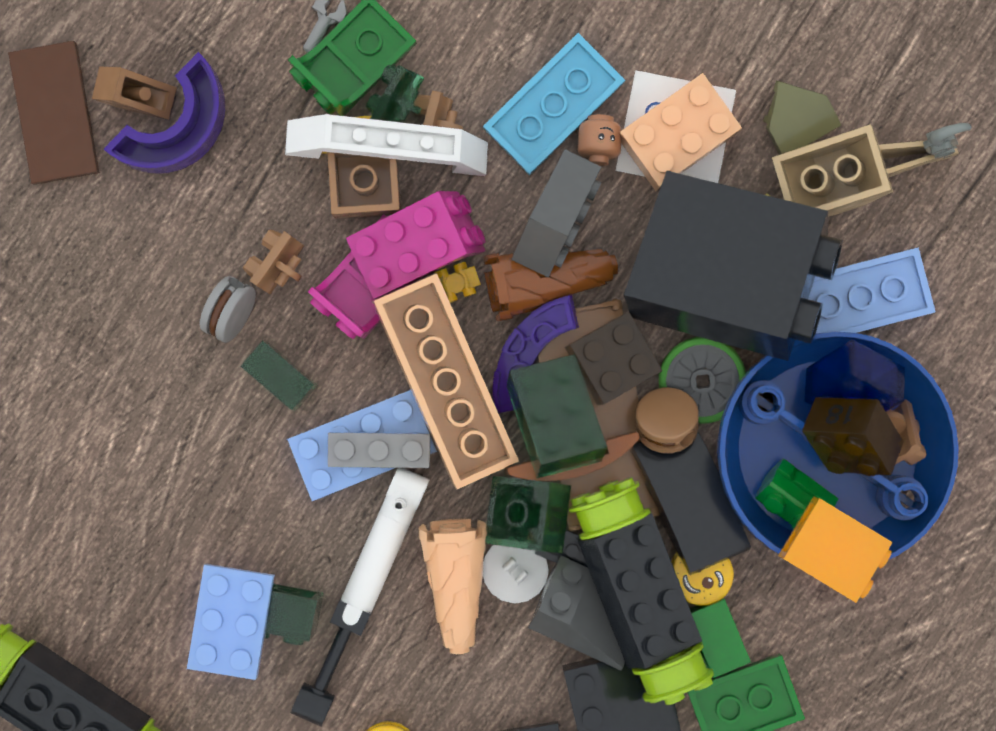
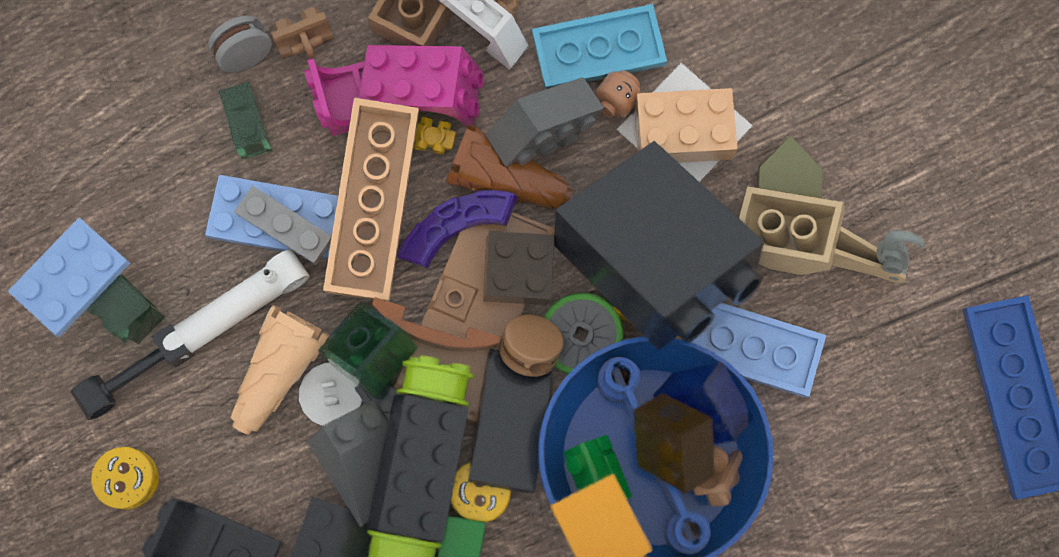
camera: 30 degrees right, 10 degrees down
(556, 416) = (440, 280): clear green brick -> none

